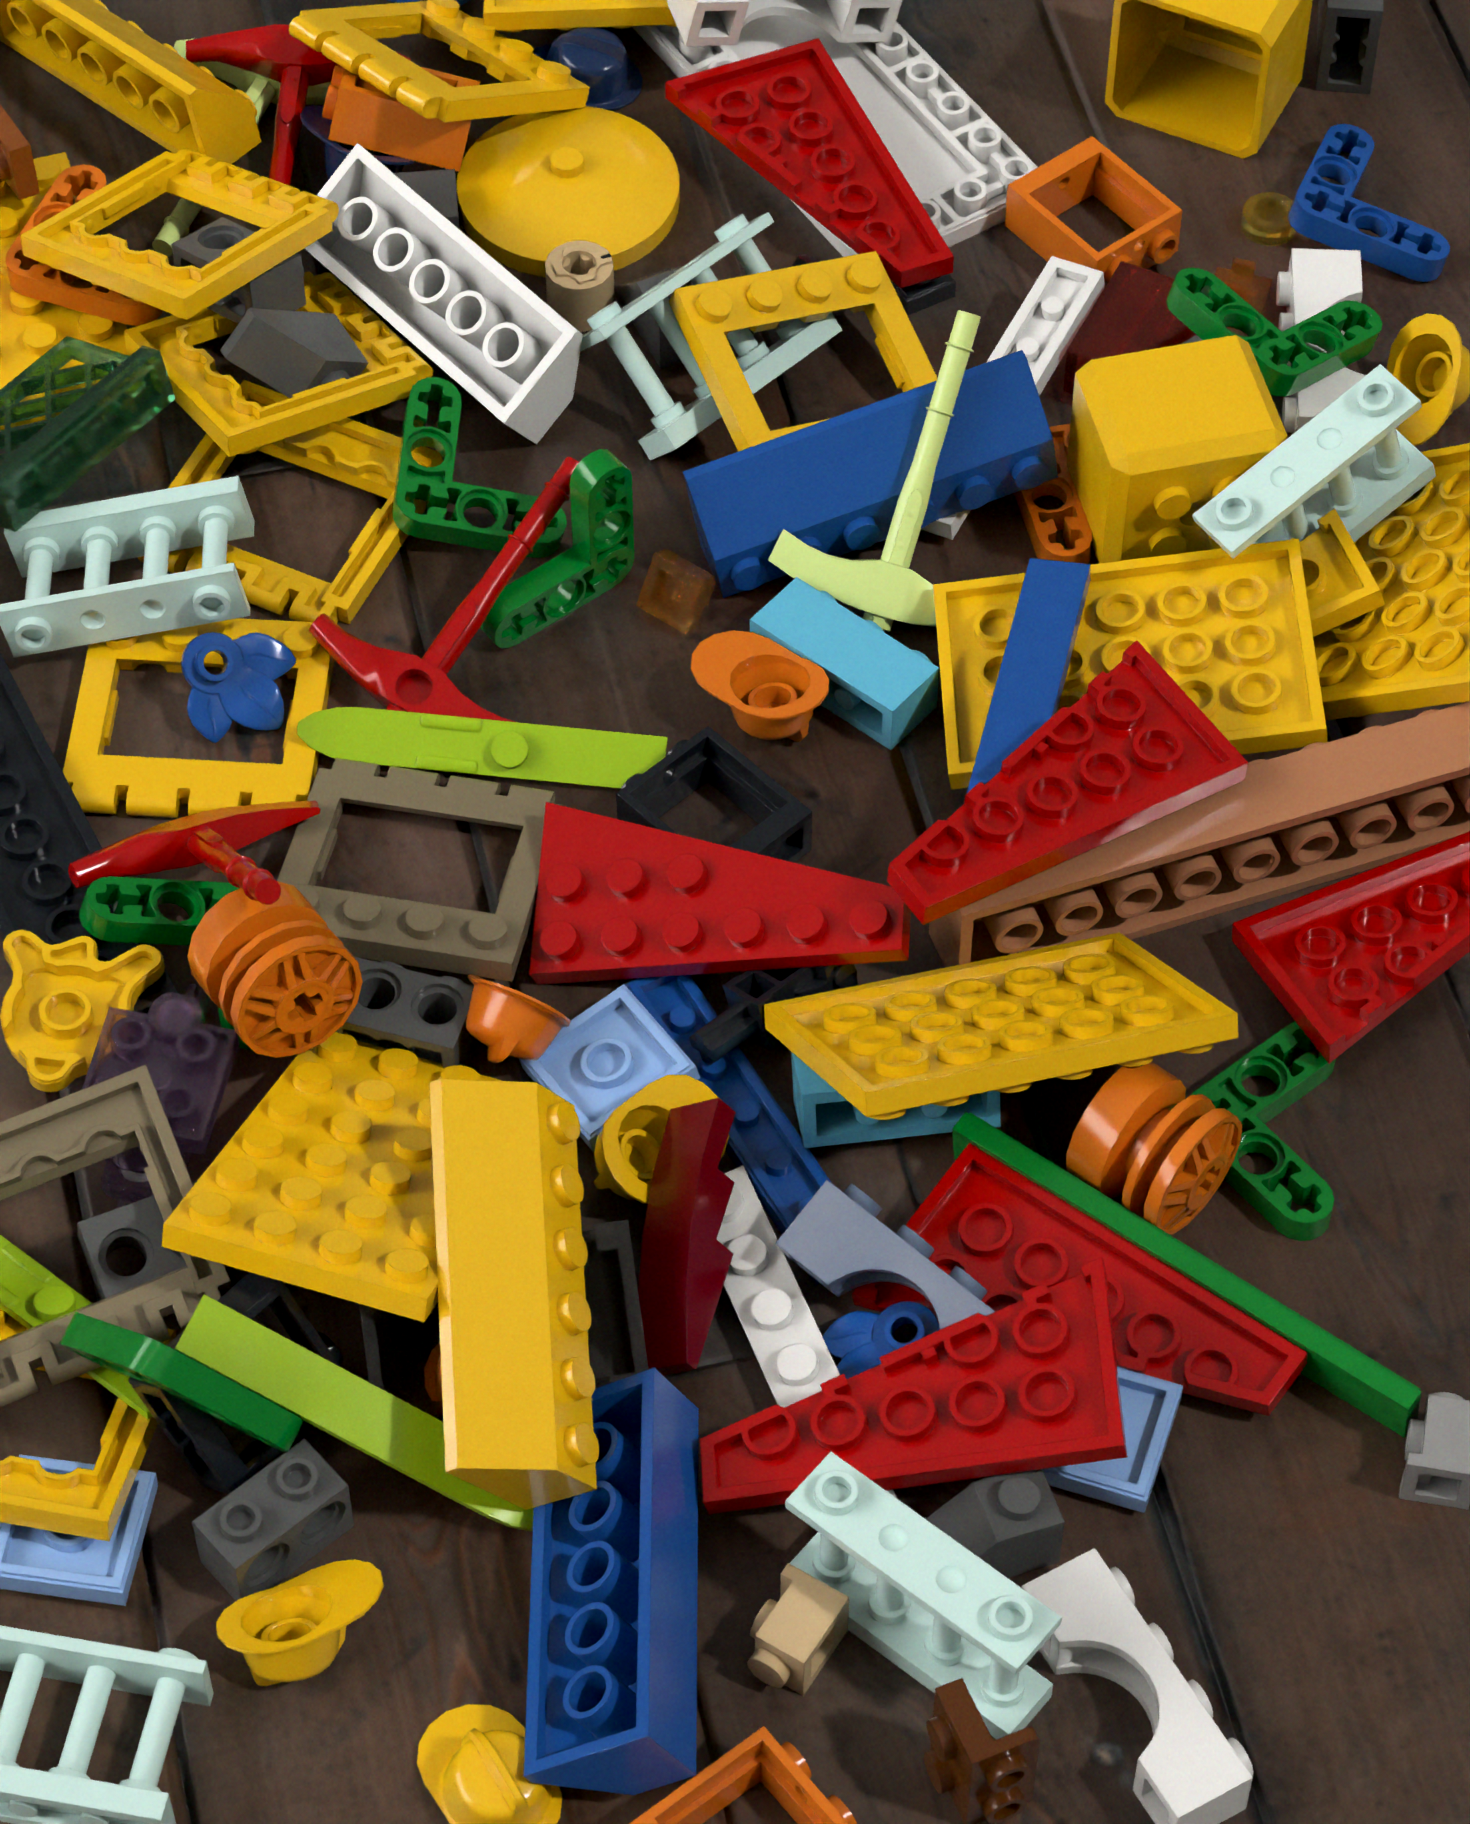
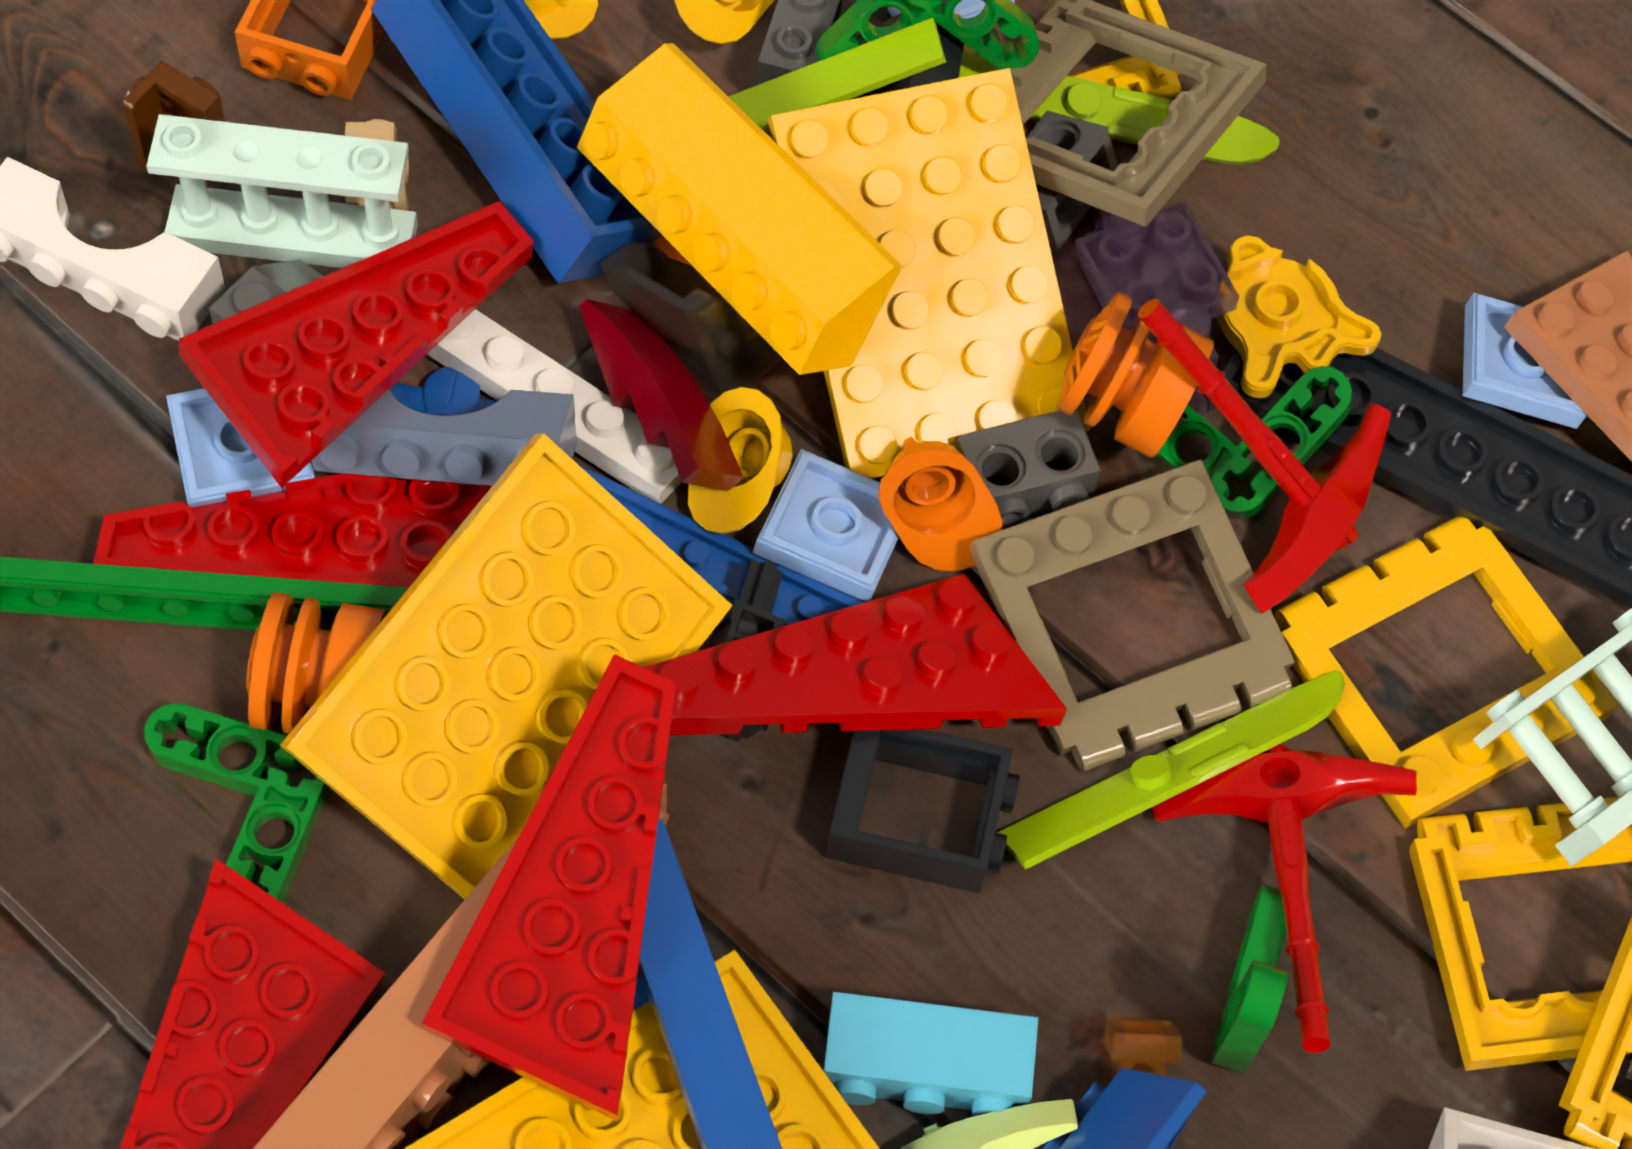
camera: 140 degrees right, 10 degrees up
(242, 689) = (1435, 691): blue plate -> none
(438, 489) = (1449, 1008): green beam -> none
(762, 683) = (981, 956): orange piece -> none

